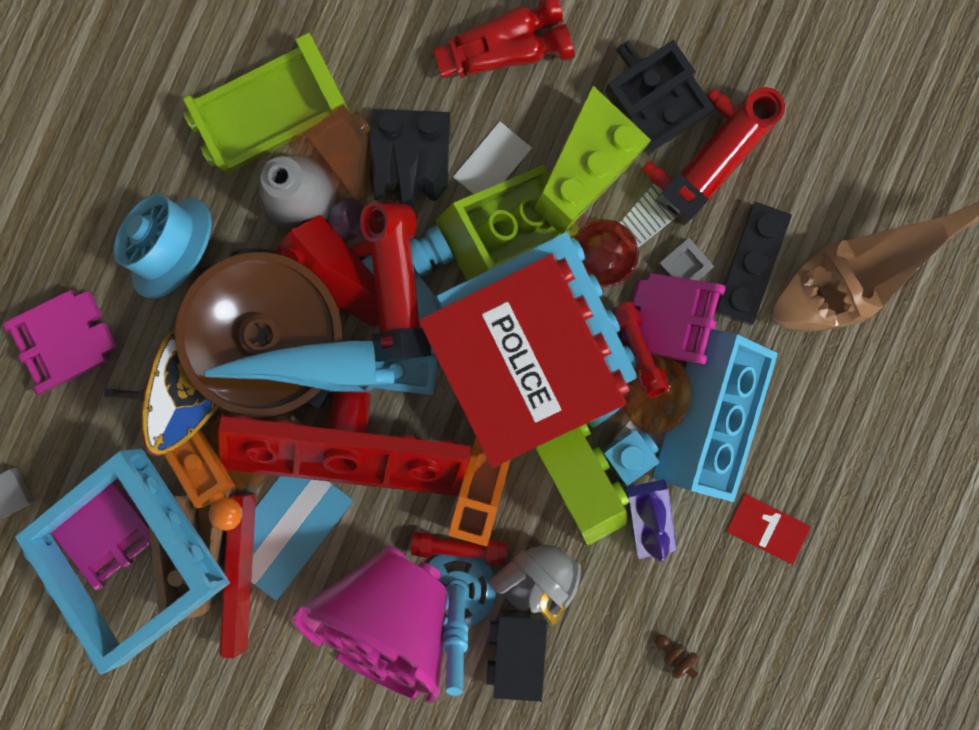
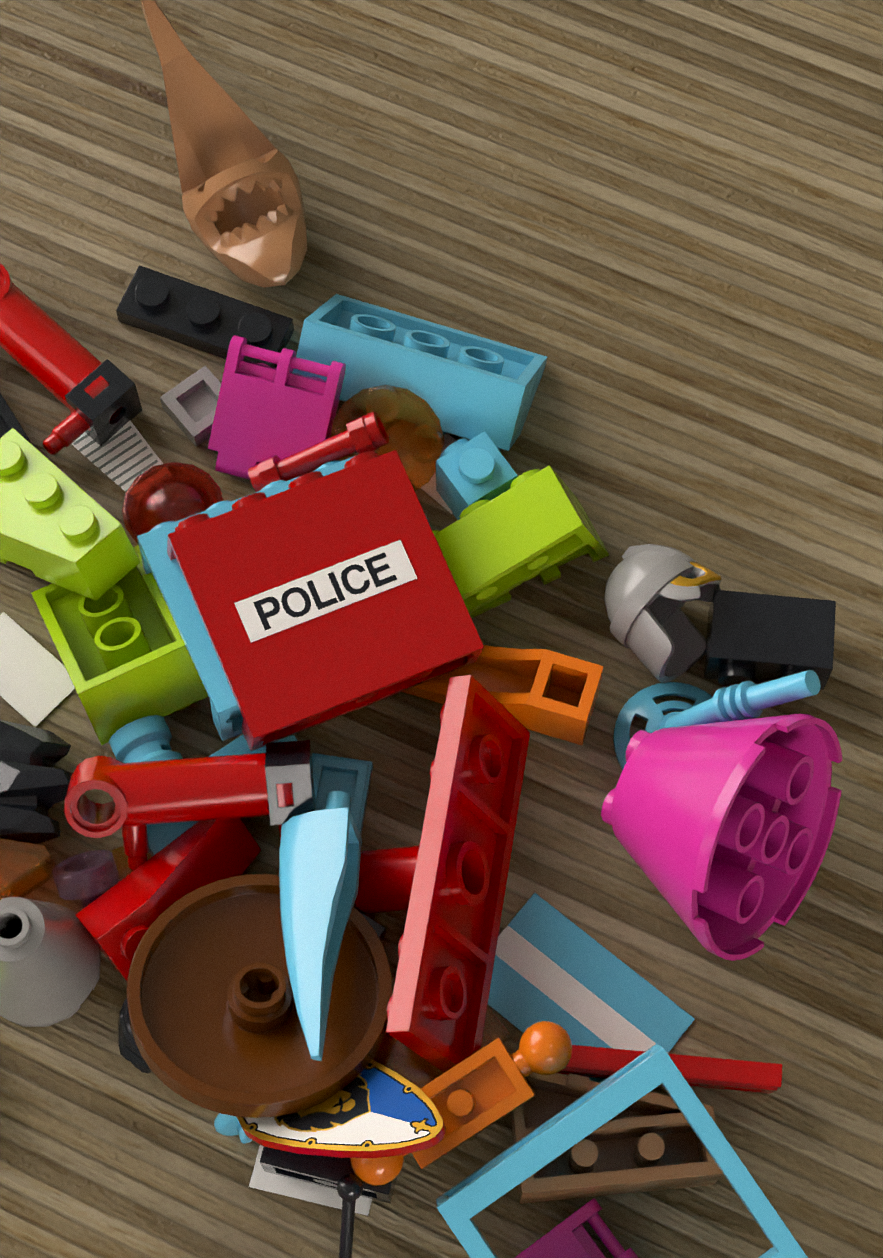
camera: 90 degrees left, 20 degrees down
(163, 243) = (100, 1157): medium azure piece -> none
(424, 545) = (615, 686): red bar -> none
(651, 520) = (574, 450): dark purple tile -> none
(674, 655) = (768, 438): reddish brown hair -> none
(768, 529) = (587, 316): red sticker -> none

